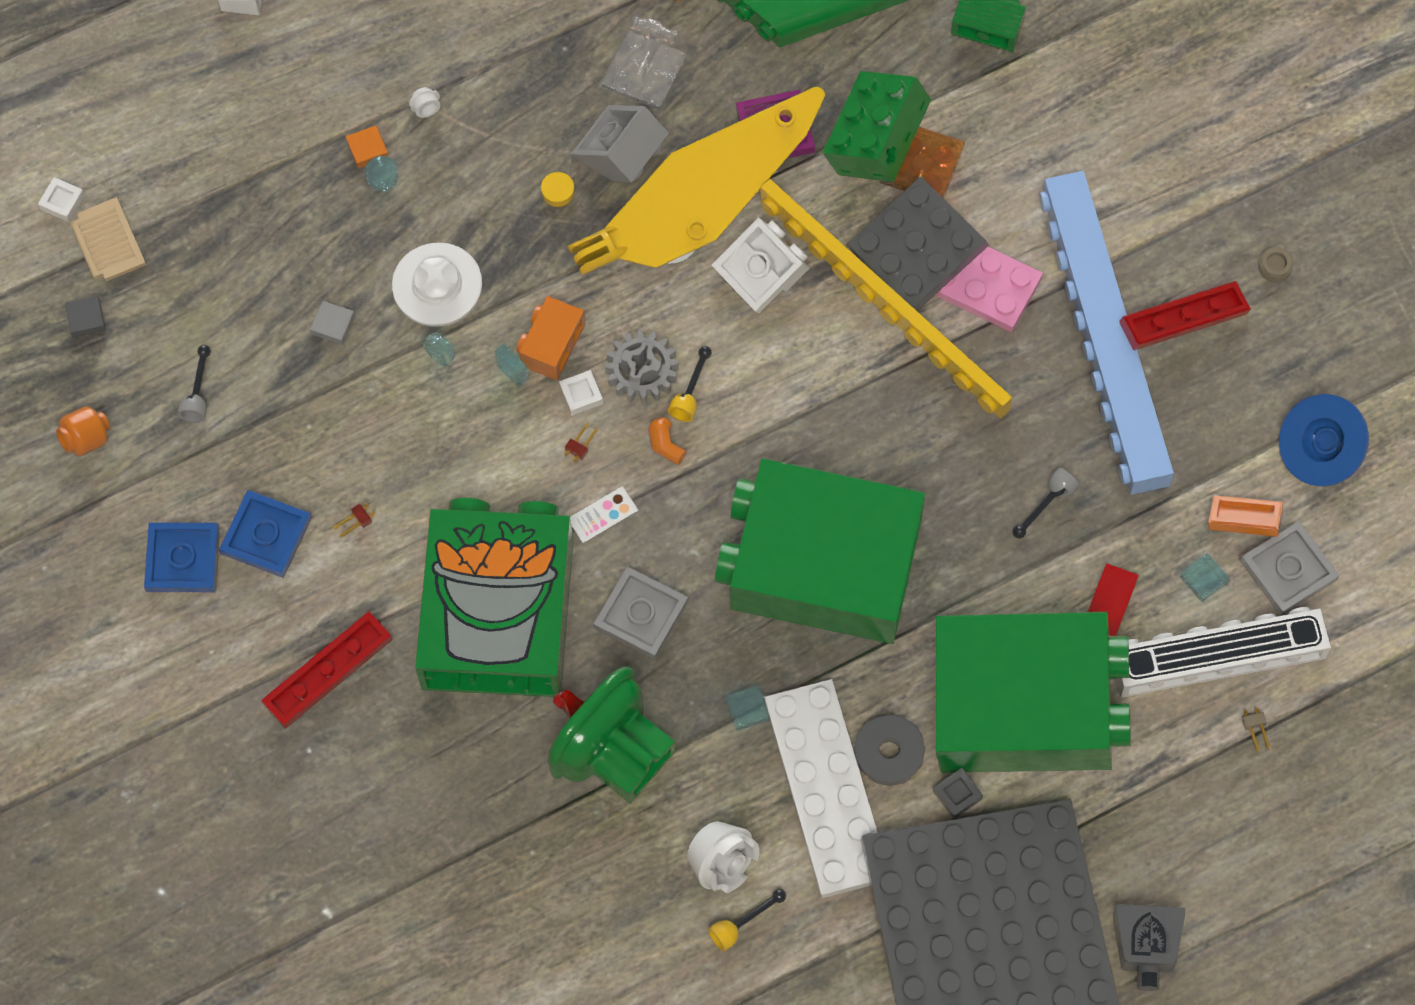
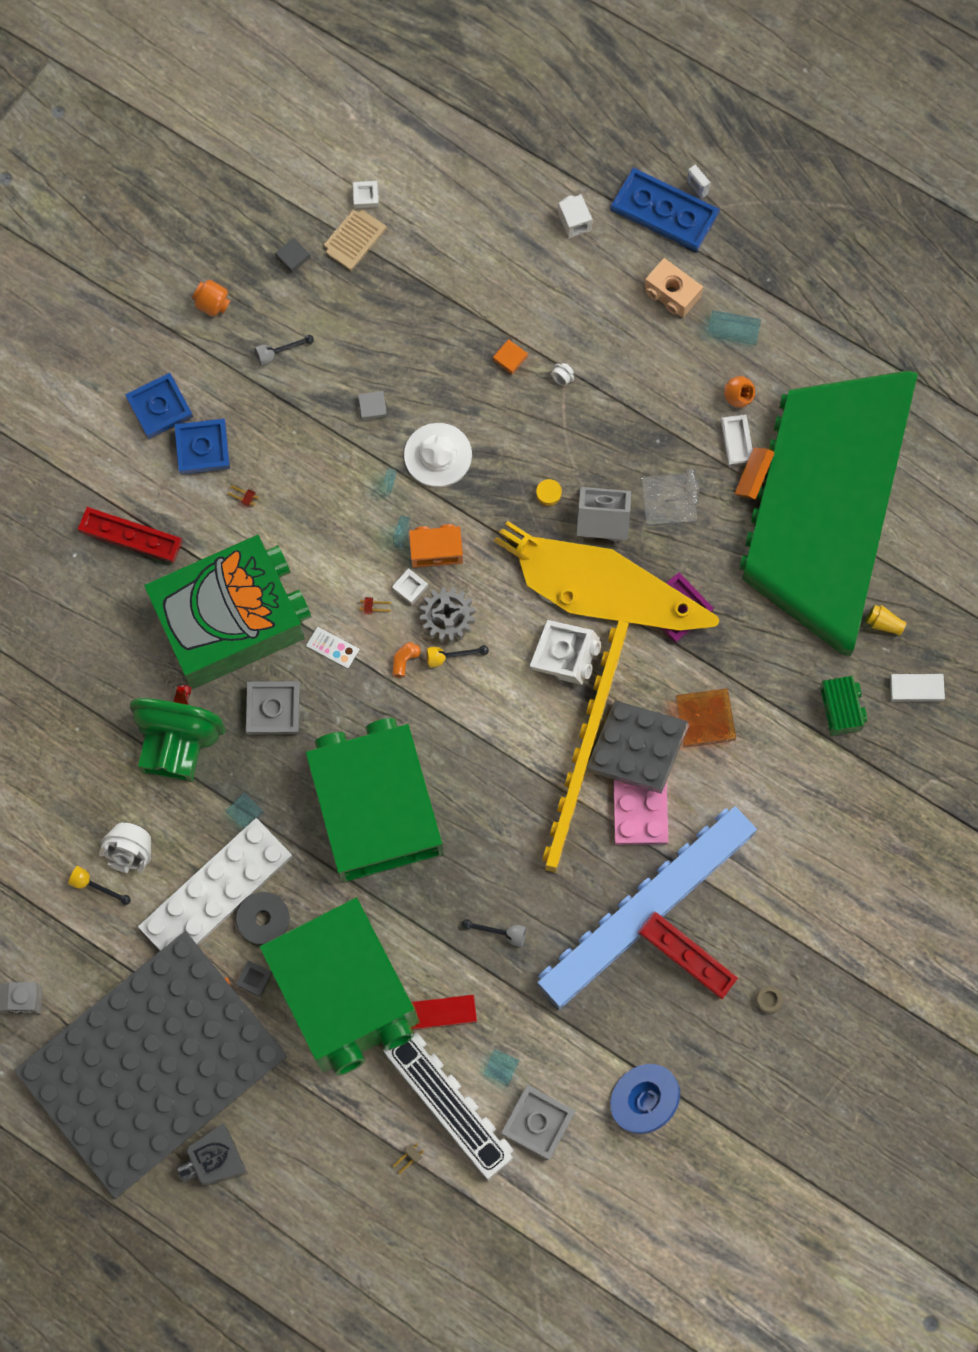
camera: 60 degrees right, 5 degrees up
(381, 173) = (496, 376): clear light blue tile -> none
(877, 126) = (710, 672): green piece -> none
(1245, 515) = (560, 1072): orange tile -> none

